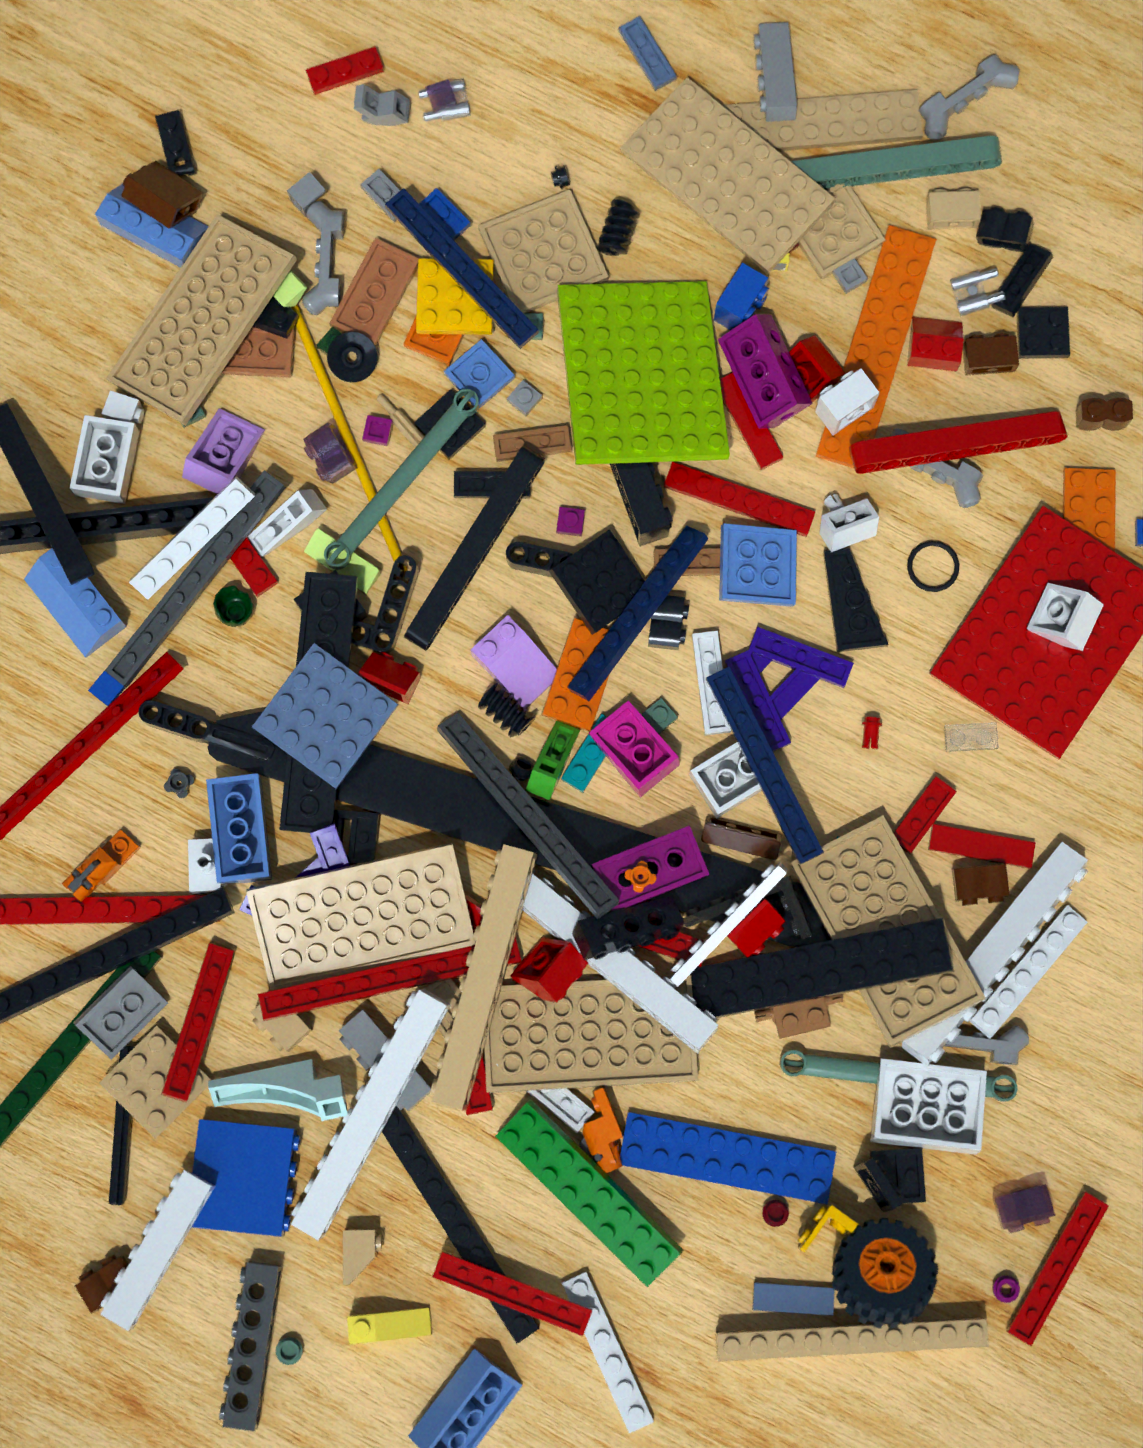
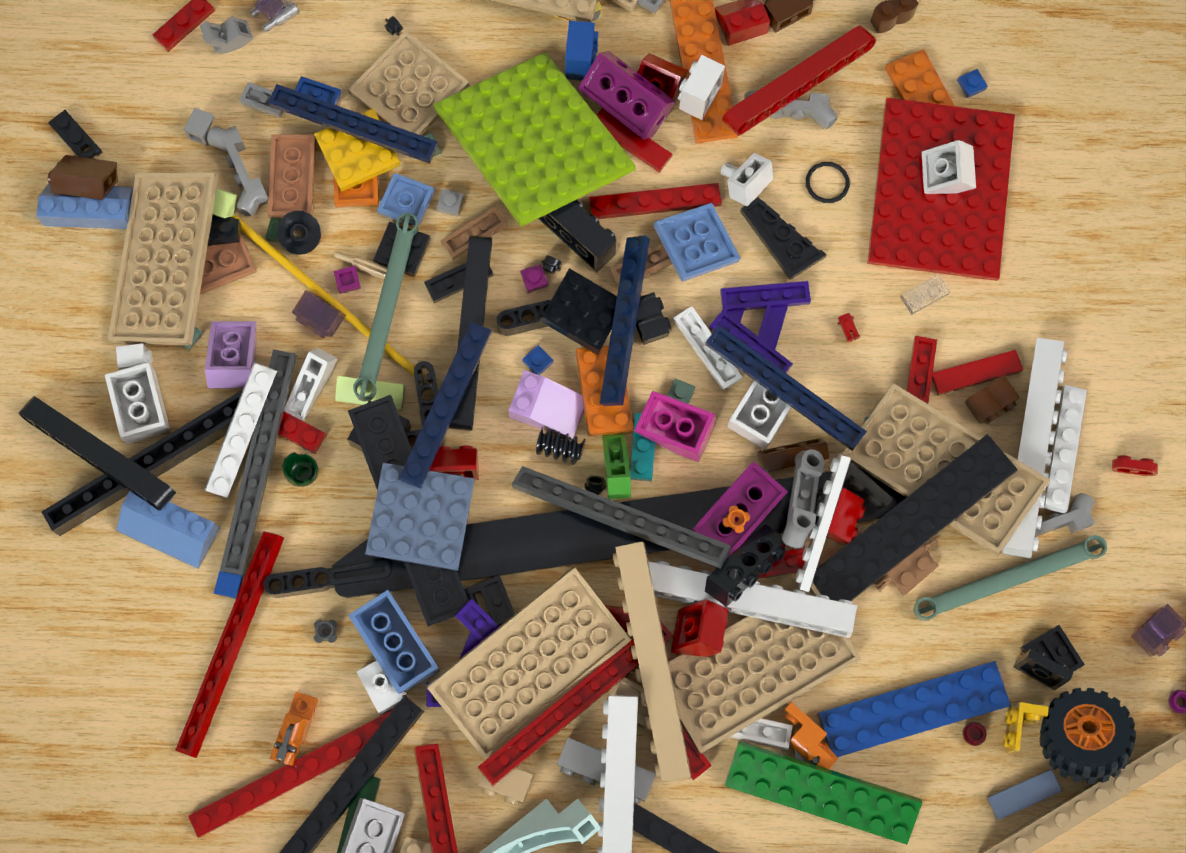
camera: 30 degrees left, 5 degrees down
(407, 613) = (445, 405): none -> dark blue plate
(530, 610) = (537, 360): none -> blue plate
(594, 515) = (551, 264): none -> black plate
(617, 228) = (458, 43): black piece -> none
(721, 888) = (803, 498): none -> light grey plate
(929, 1106) = (1048, 589): white slope -> none
(1102, 1032) = (1141, 467): none -> red plate

